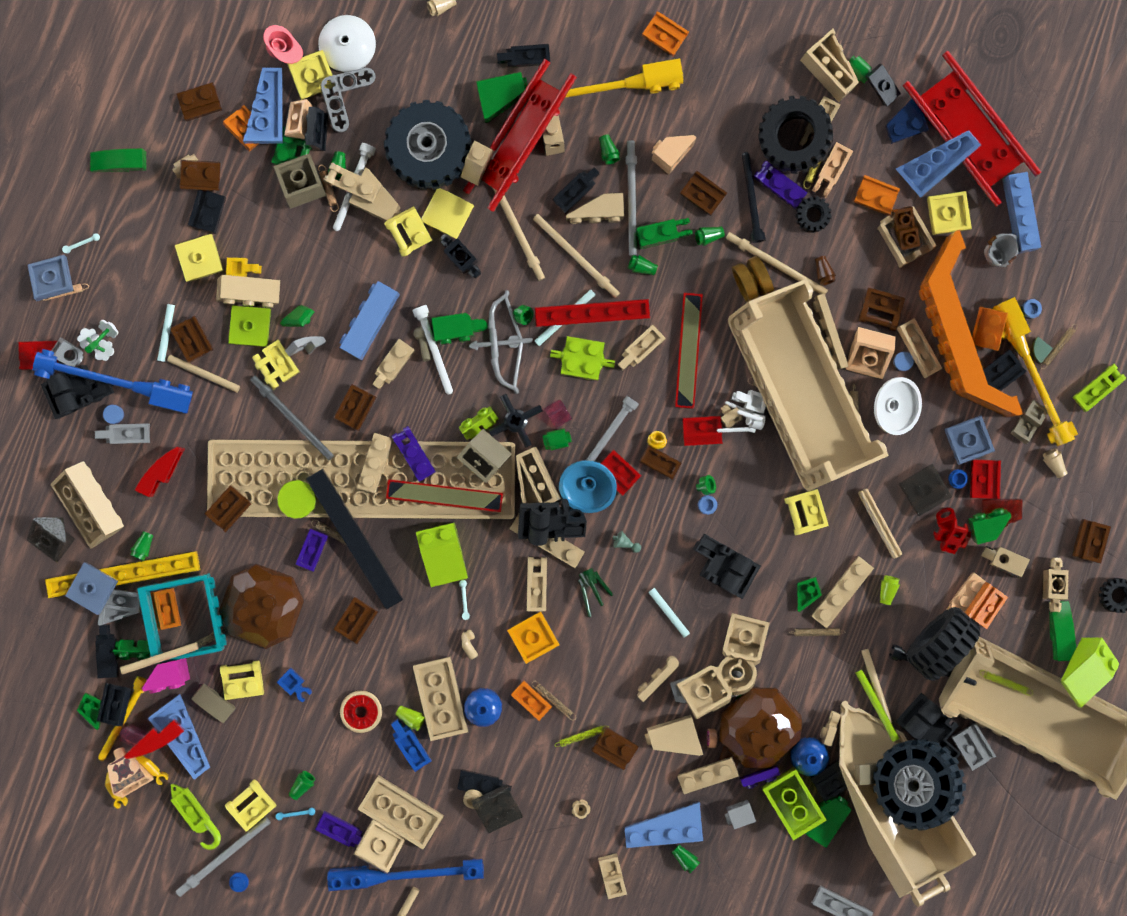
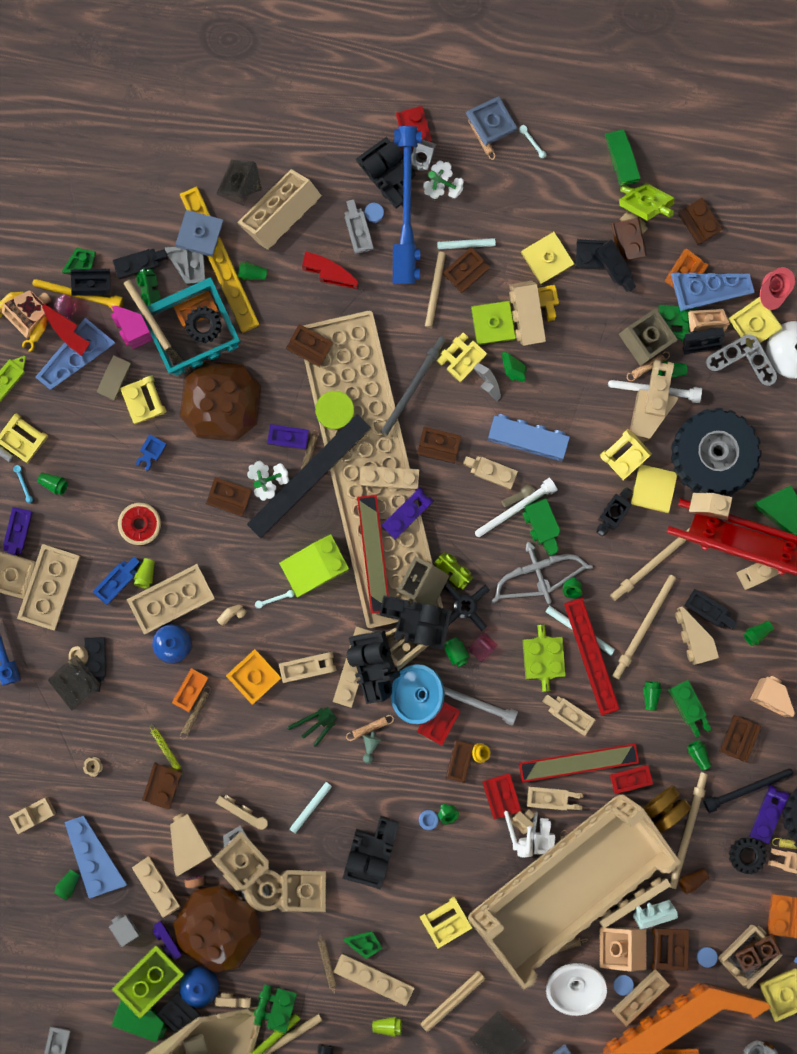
camera: 65 degrees right, 5 degrees down
(167, 148) = (646, 201): none -> lime plate
(170, 609) = (192, 319): none -> black tyre
(222, 194) = (615, 265): none -> black hinge
(350, 584) = (263, 483): none -> white plant
(520, 468) = (420, 623): none -> black plate
(608, 539) = (370, 727): none -> light nougat piece
(631, 161) = (753, 658): light grey bar -> none
(716, 305) = (631, 779): none -> red plate
(716, 384) = (551, 798): none -> tan hinge
(846, 315) = (655, 914): none -> light aqua plate
(849, 685) = (281, 1010): none -> green plate
(897, 276) = (707, 957): none -> medium blue tile

